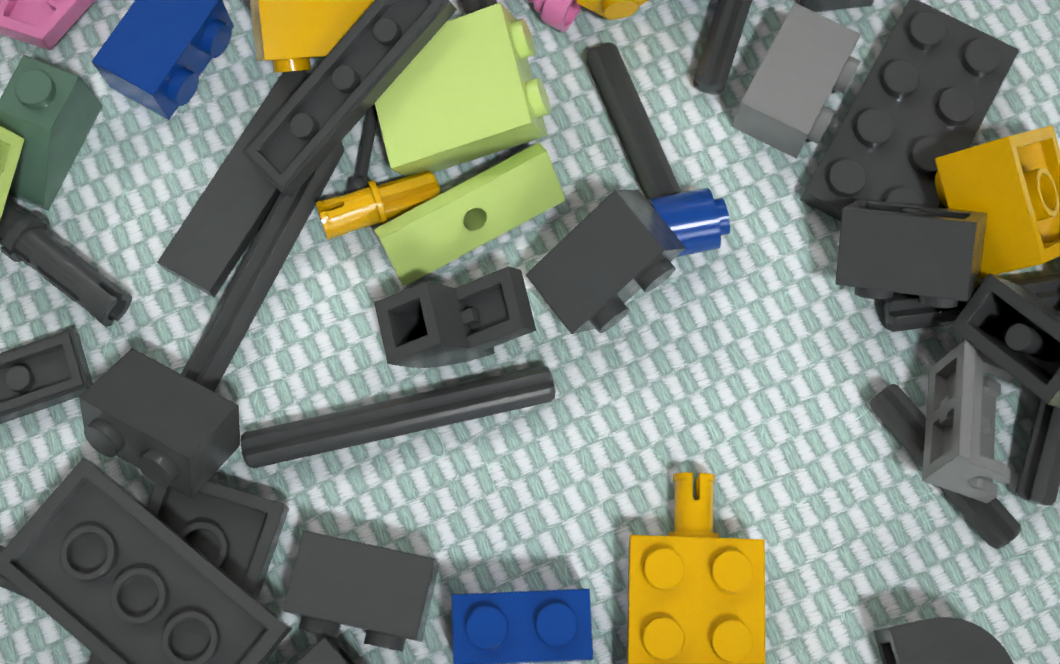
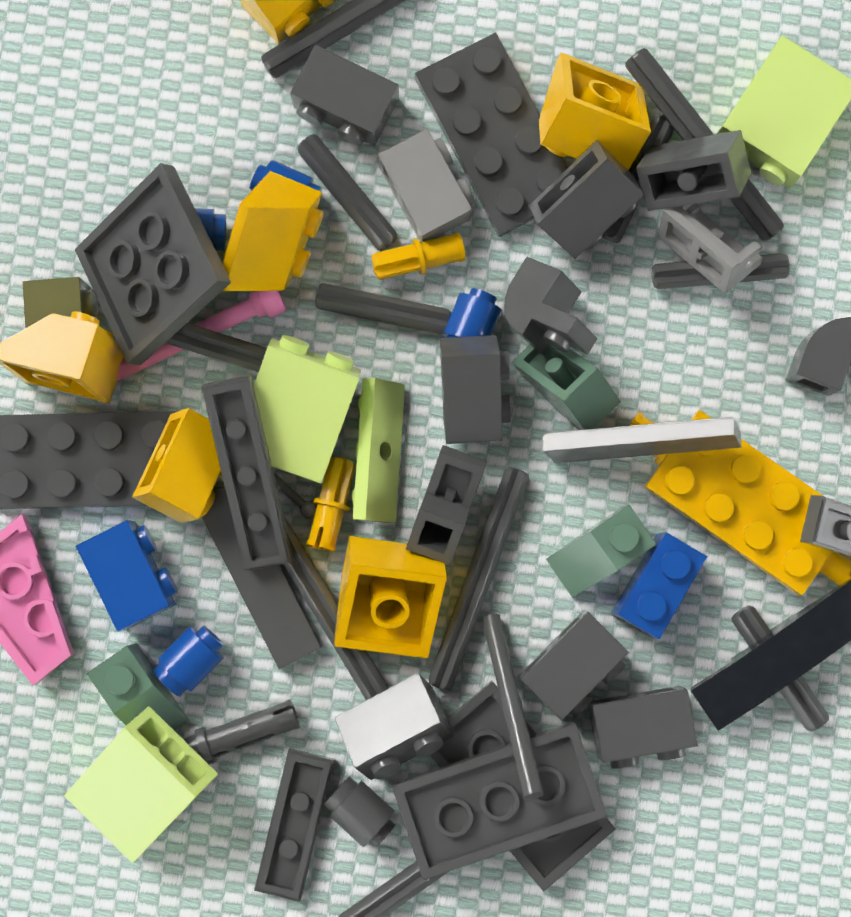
camera: 65 degrees left, 10 degrees up
(41, 450) = (361, 812): none -> dark grey brick
(109, 161) = (189, 660): none -> blue brick
(259, 543) = (512, 707): none -> dark grey bar
(306, 322) = (388, 598): none -> yellow slope
(520, 533) = (601, 551): none -> sand green slope
(683, 493) = (642, 440): none -> tile
(690, 371) = (569, 384): none -> sand green slope
(715, 123) = (418, 256): none -> yellow axle
(754, 281) = (539, 309): none -> dark grey brick

